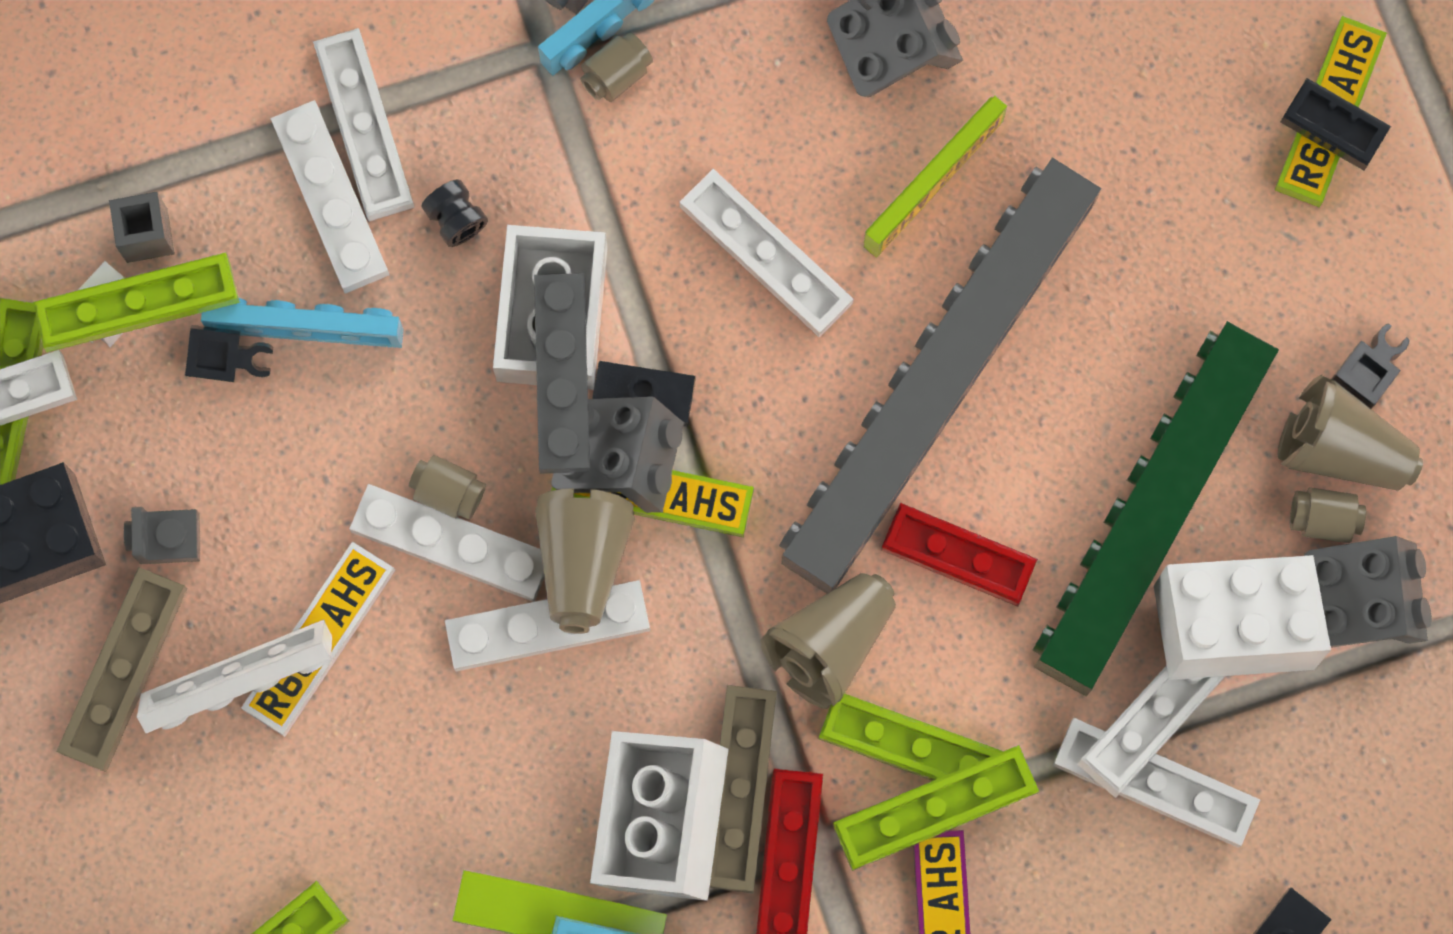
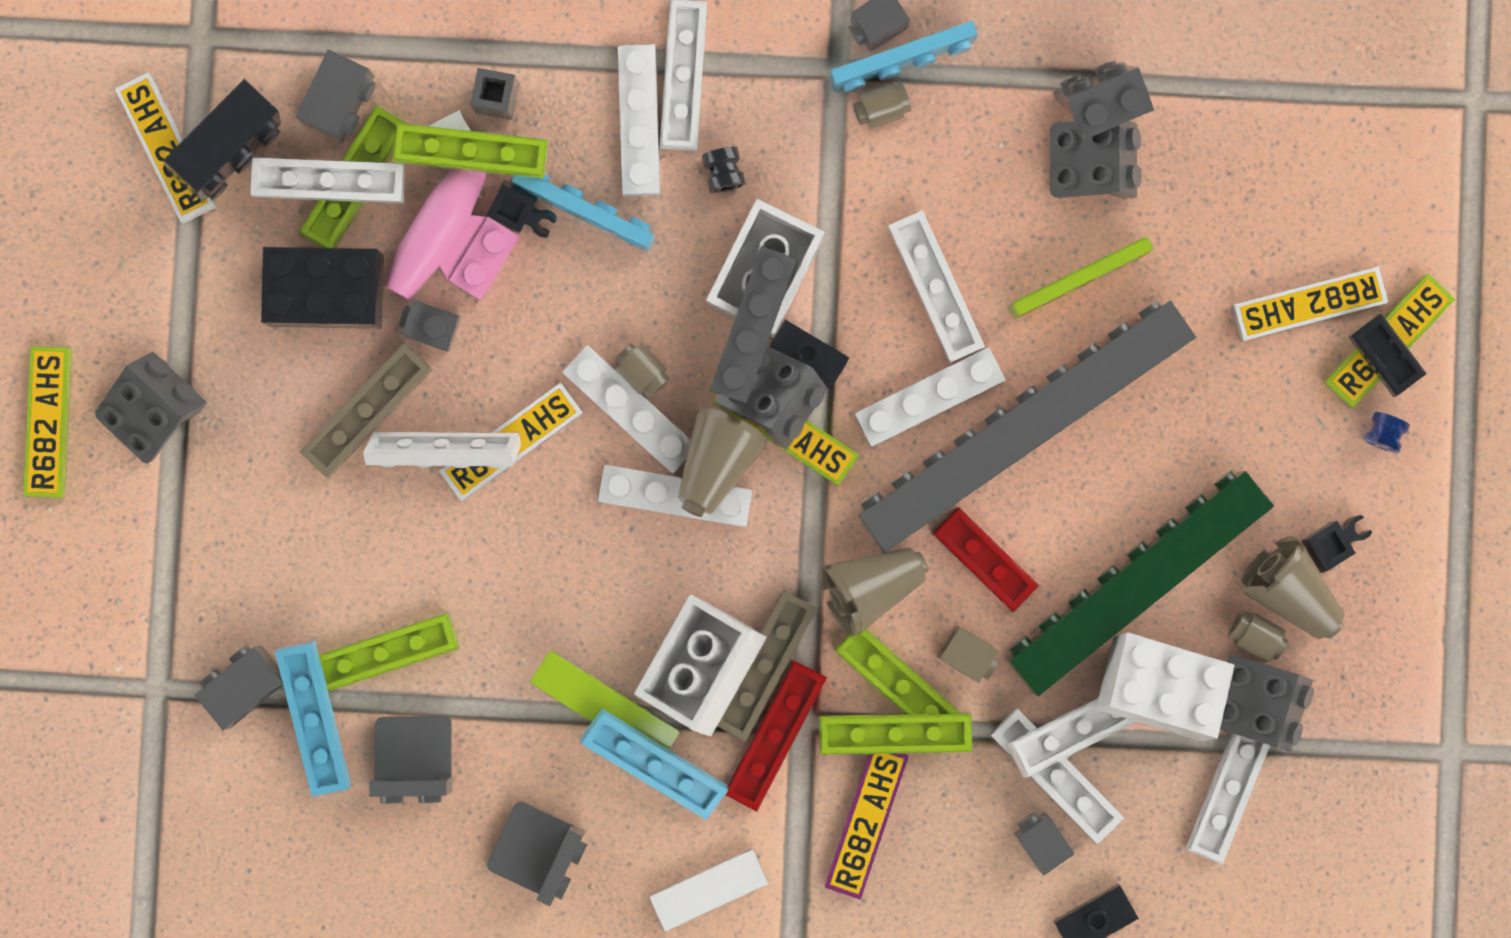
camera: 20 degrees right, 10 degrees up
(145, 419) = (449, 237): none -> bright pink plate
(811, 387) = (929, 397): none -> white plate
(987, 675) = (969, 655): none -> dark tan brick
(1173, 870) = (1043, 842): none -> dark grey brick
(1218, 105) = (1309, 304): none -> tile
(1374, 215) = (1386, 432): none -> clear blue wheel
(1375, 727) = (1227, 798): none -> white tile

